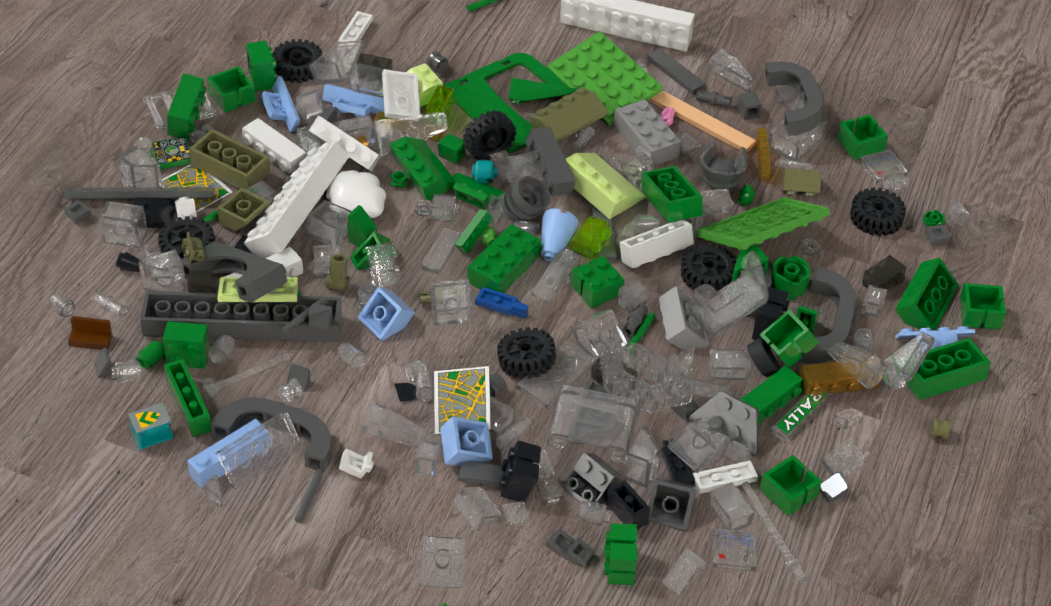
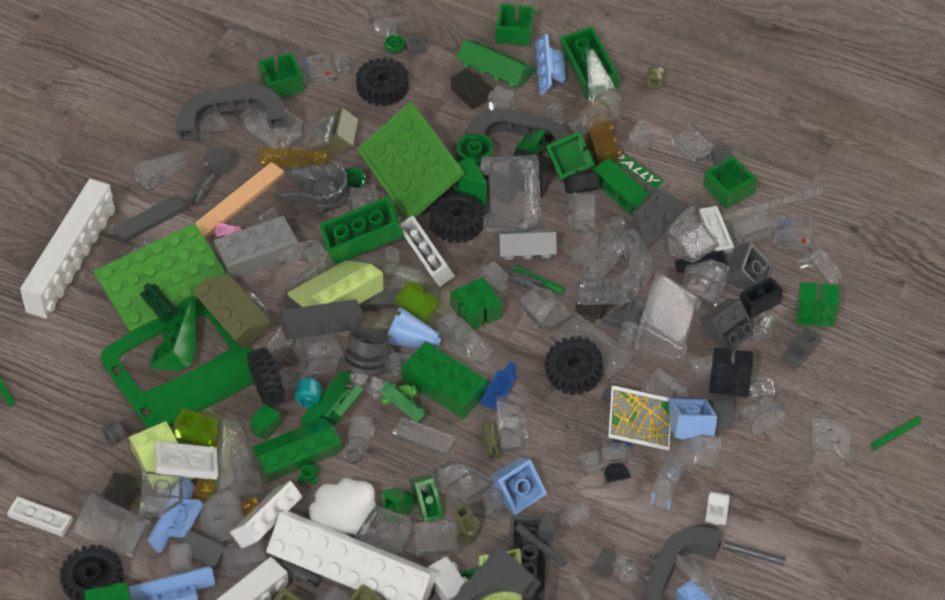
camera: 85 degrees left, 5 degrees up
(572, 72) = (158, 302): none -> dark green hinge

